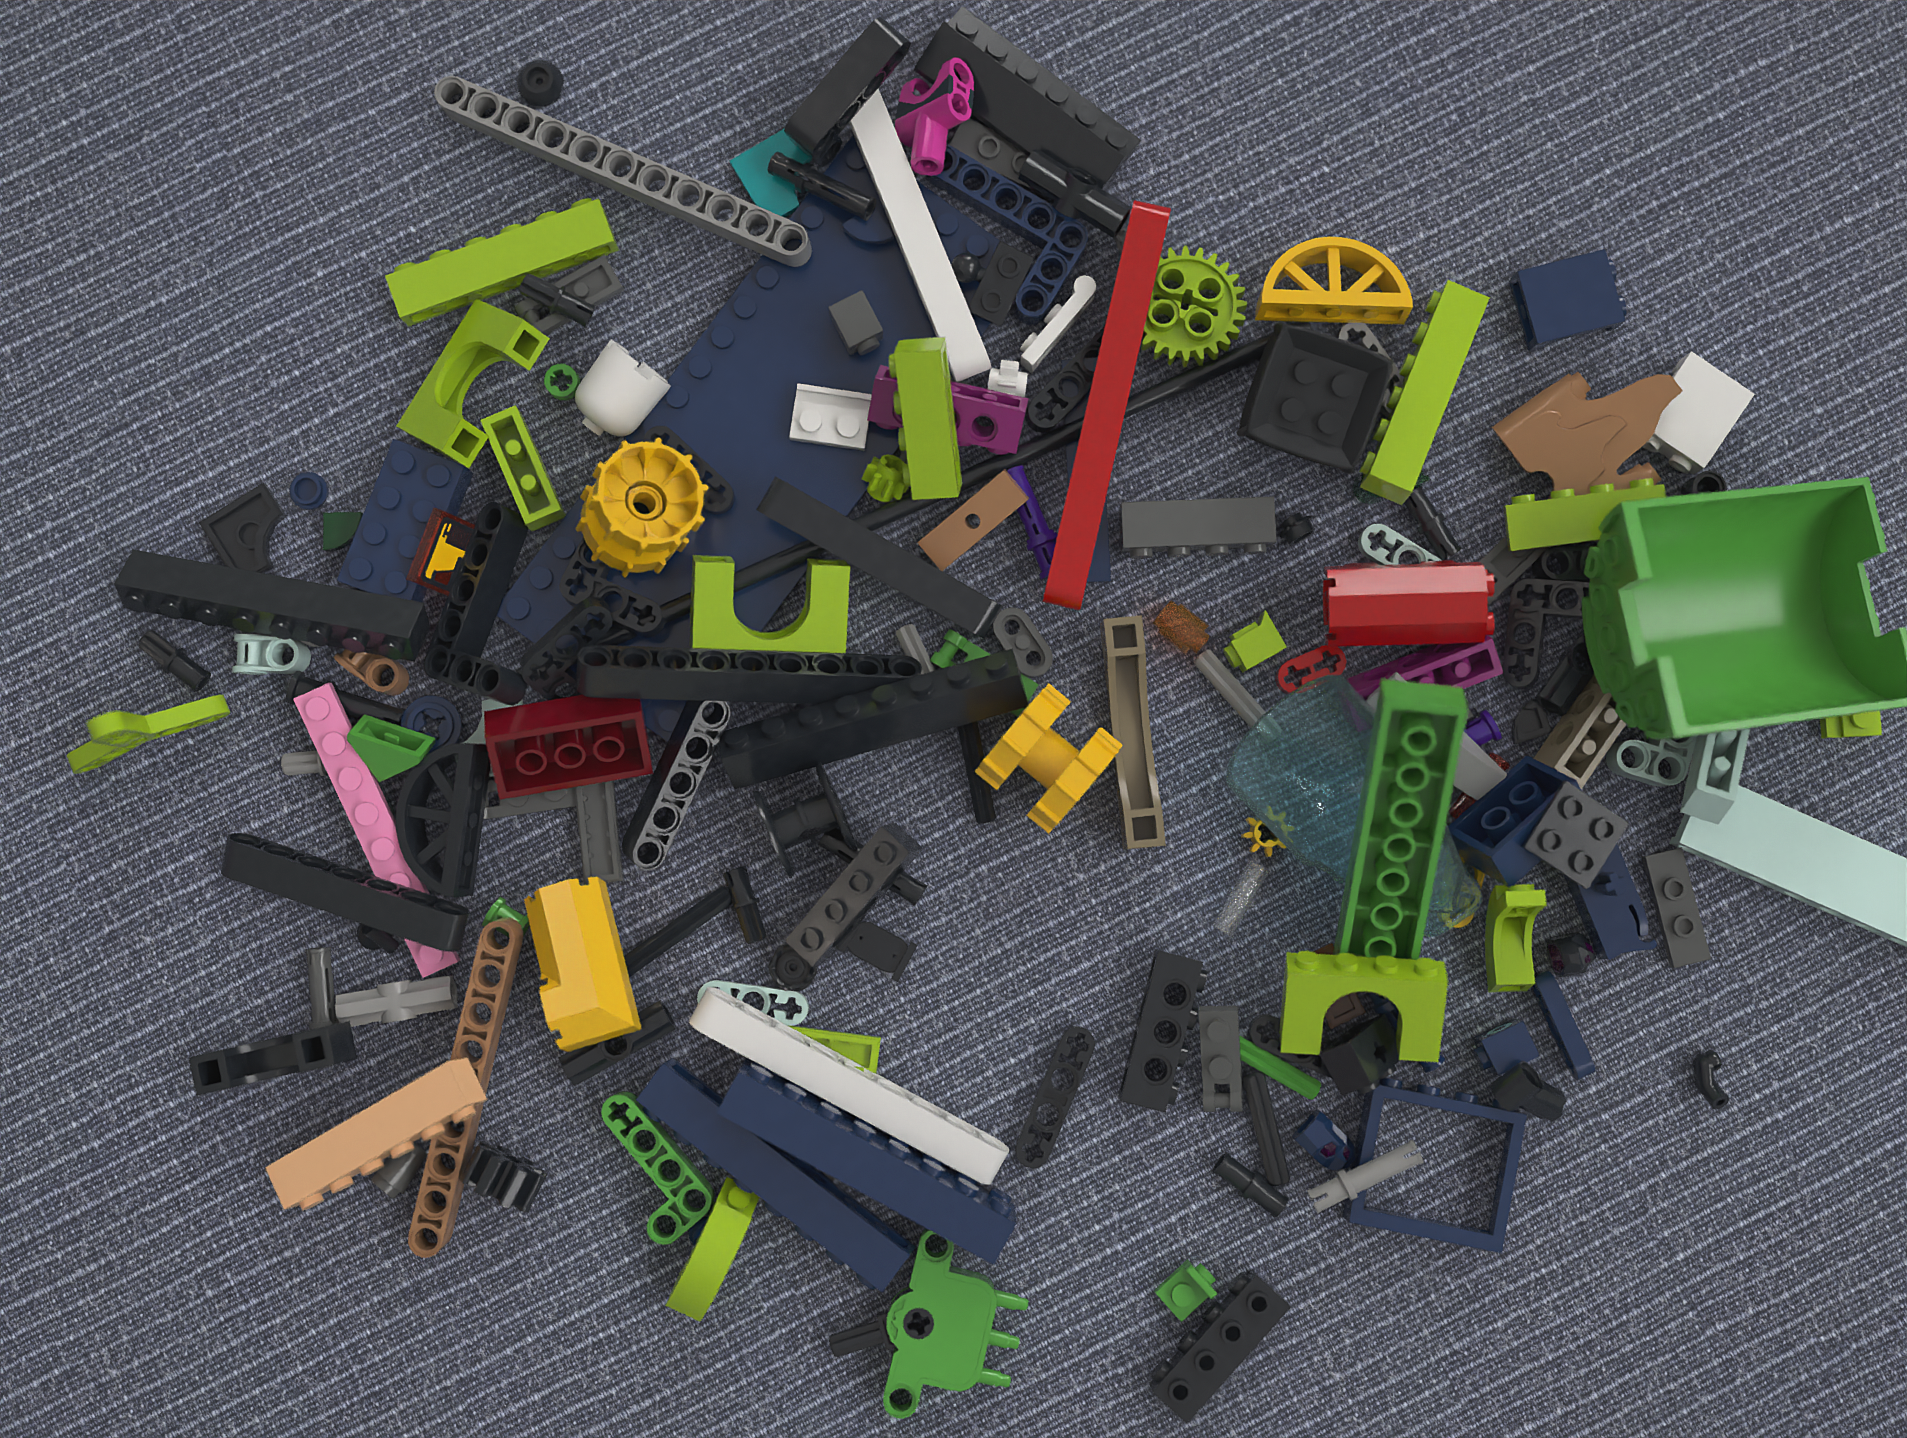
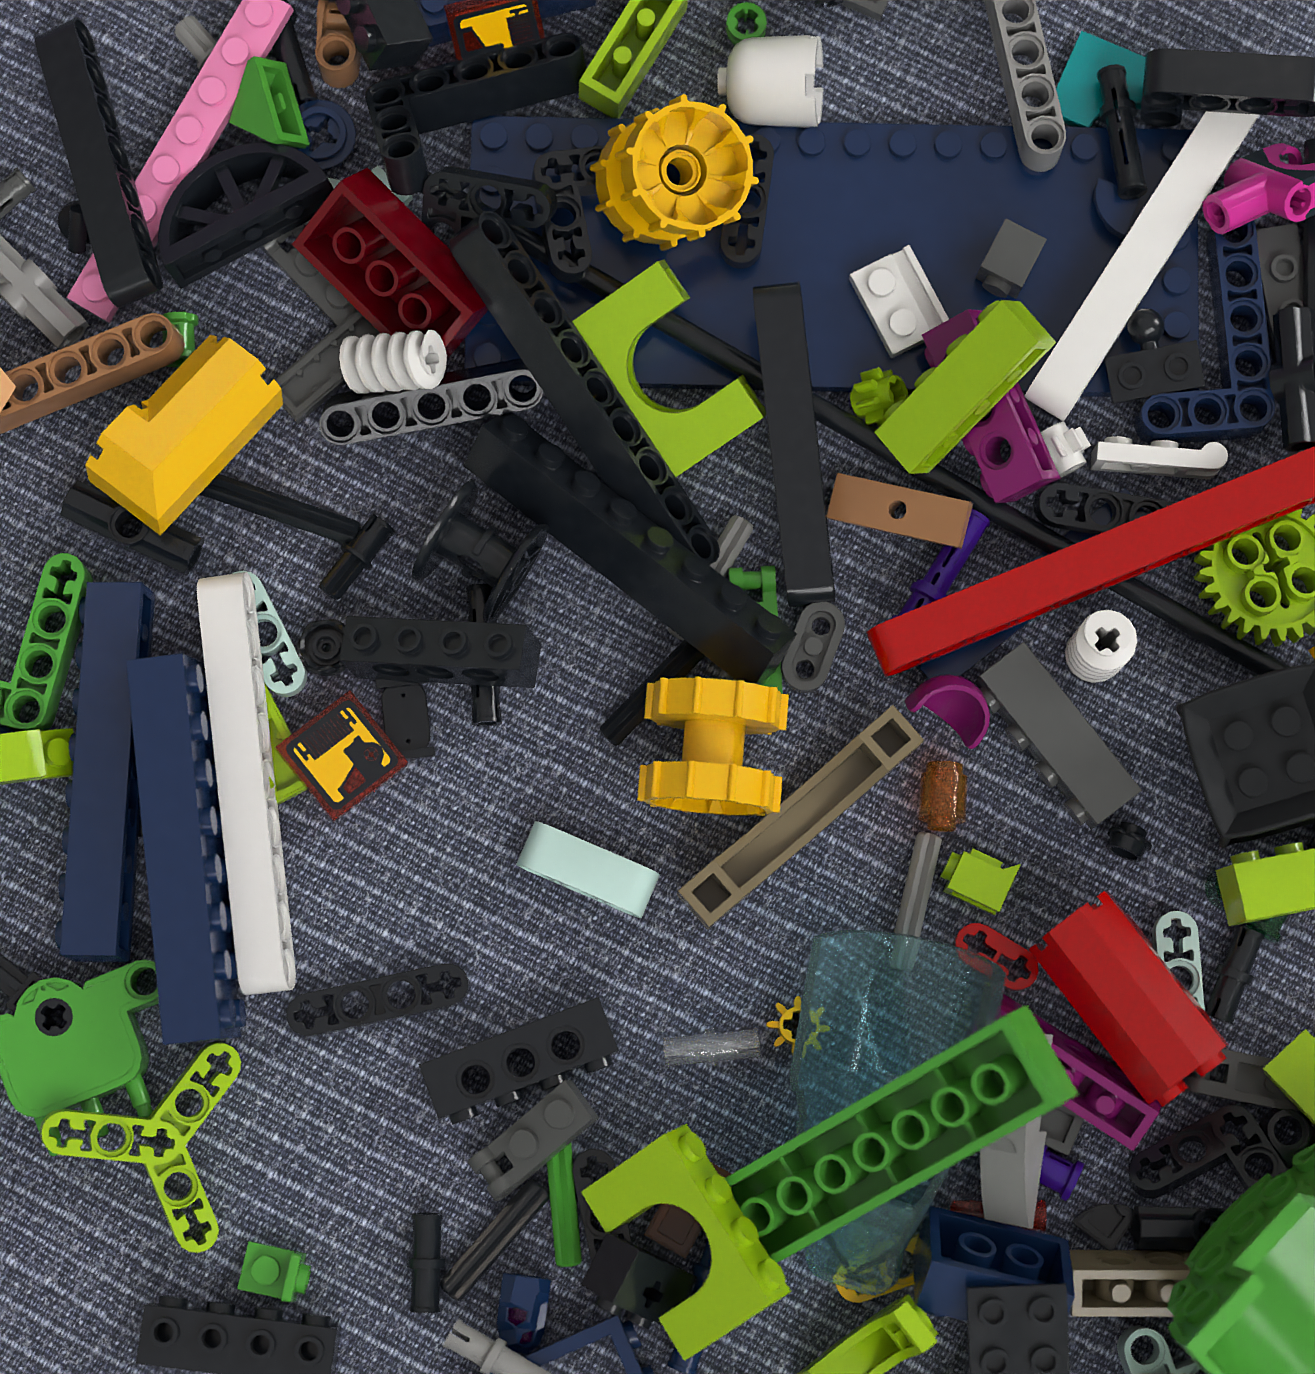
camera: 55 degrees right, 5 degrees down
(633, 788) = (393, 361): none -> white piece
(876, 1008) = (341, 756): none -> tile
(1066, 897) = (588, 869): none -> light aqua beam
(1066, 1308) = (172, 1158): none -> lime piece
(1130, 574) = (957, 703): none -> magenta helmet
(1169, 443) = (1104, 628): none -> white piece

